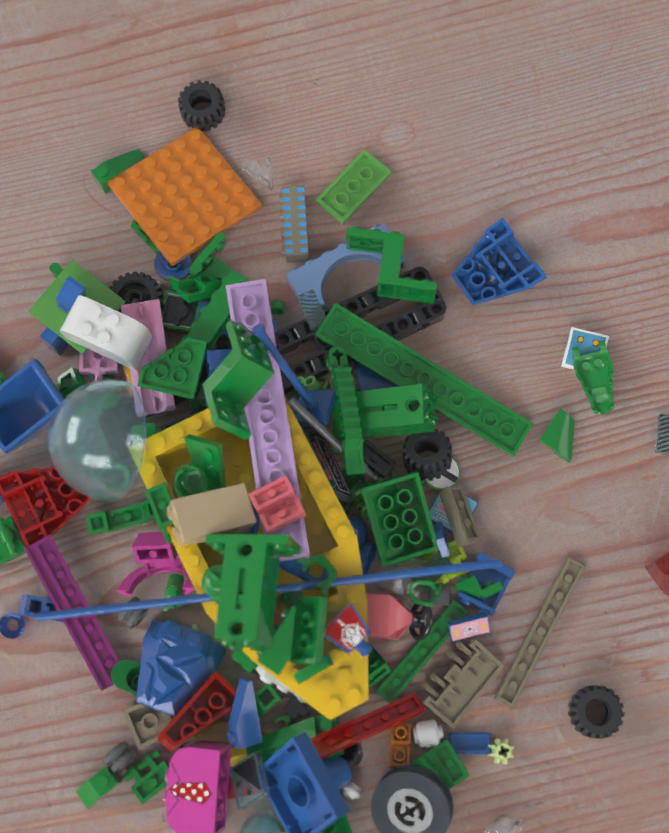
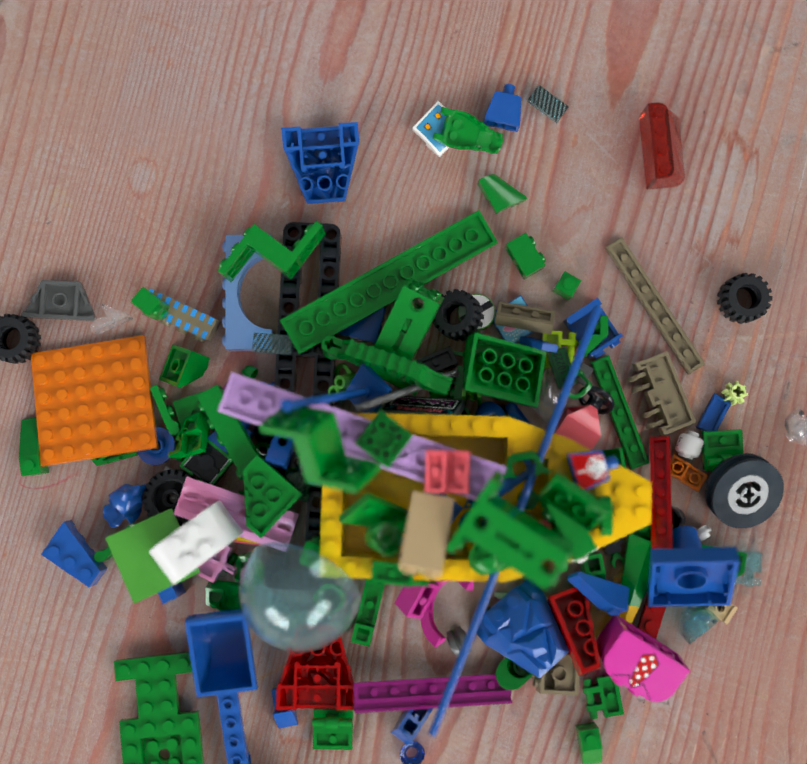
camera: 60 degrees left, 10 degrees up
(45, 247) = (74, 555): none -> blue wedge
(69, 294) = (142, 558): blue slope -> none
(109, 264) = (124, 503): none -> blue head
(119, 757) = (575, 714): dark grey wheel -> none
(174, 589) = (462, 598): green animal -> none
(249, 780) = (655, 615): clear light blue tile -> none
(253, 126) = (60, 301): none -> dark grey wing
(253, 250) = (183, 366): none -> green slope
(276, 434) = (384, 439): none -> green tile
(289, 192) = (150, 304): none -> green brick
(353, 187) = (173, 243): bright green plate -> none
(469, 626) = (622, 362): tile -> none
(510, 538) = (566, 285): none -> green brick
(516, 486) = (525, 255): none -> green brick
(637, 398) = (504, 110): none -> blue torso

